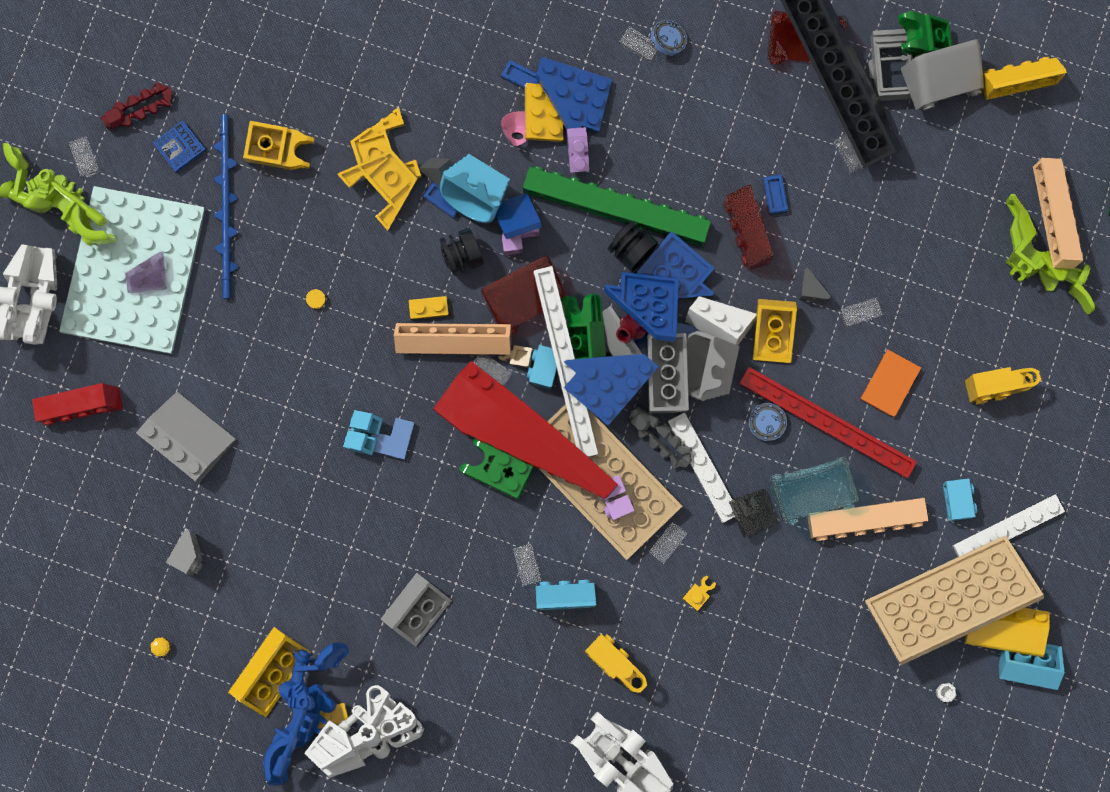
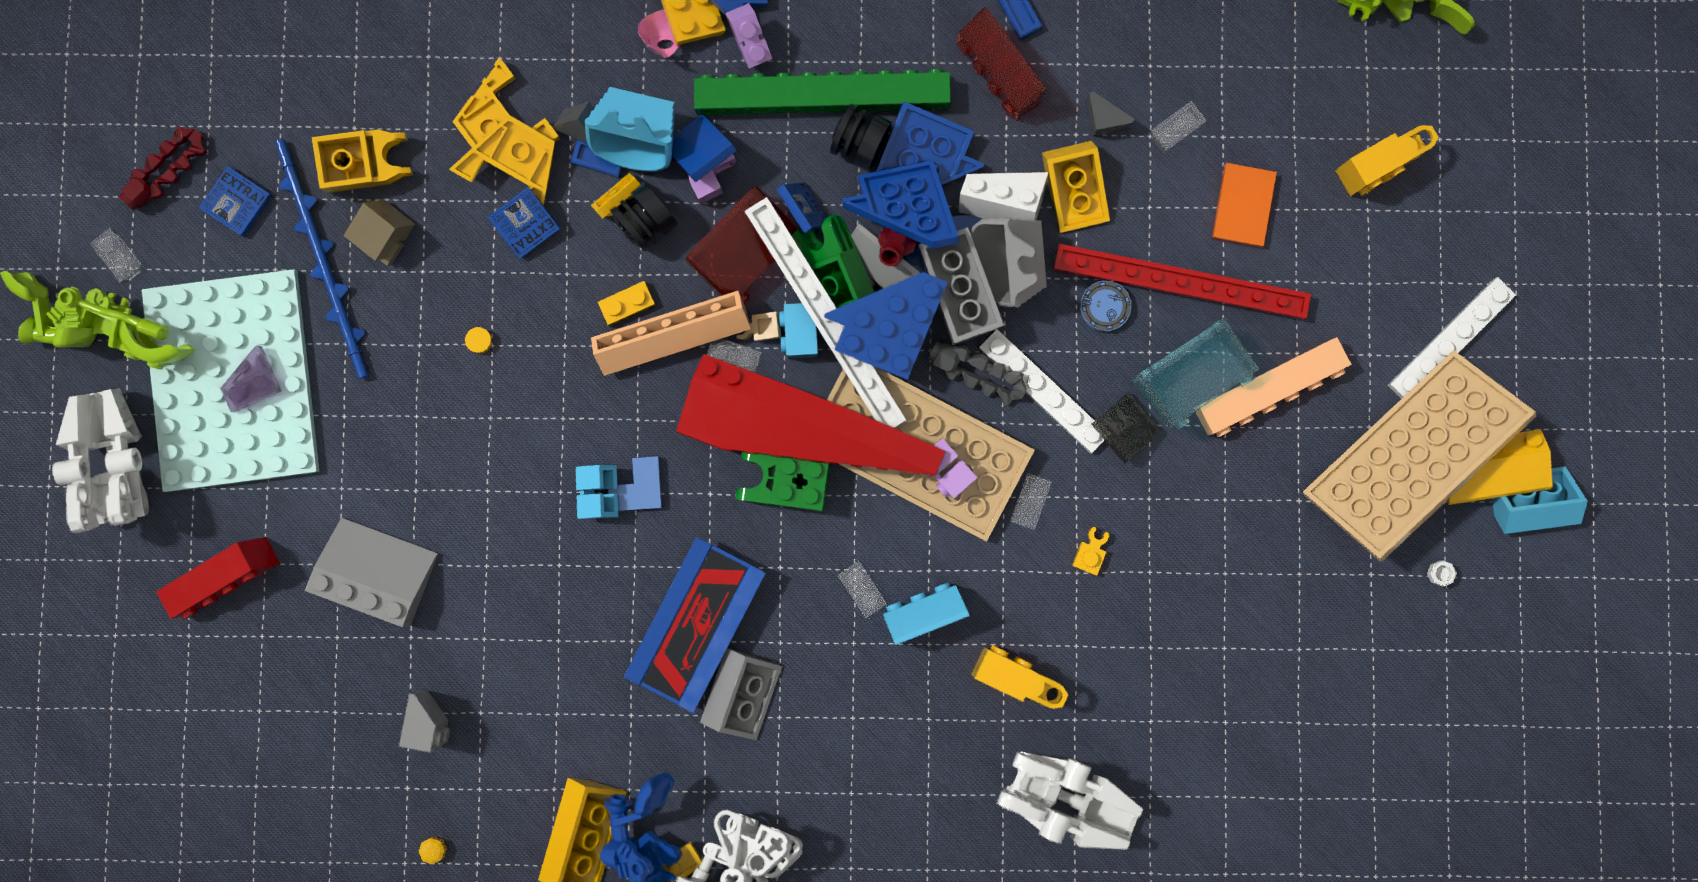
camera: 15 degrees left, 5 degrees up
(273, 200) = (379, 230): none -> dark tan plate
(376, 227) = (524, 222): none -> blue tile
(400, 548) = (694, 624): none -> hinge
(446, 229) = (613, 196): none -> yellow plate
(575, 280) = (803, 206): none -> blue tile
(959, 499) = (1380, 324): medium azure brick -> none

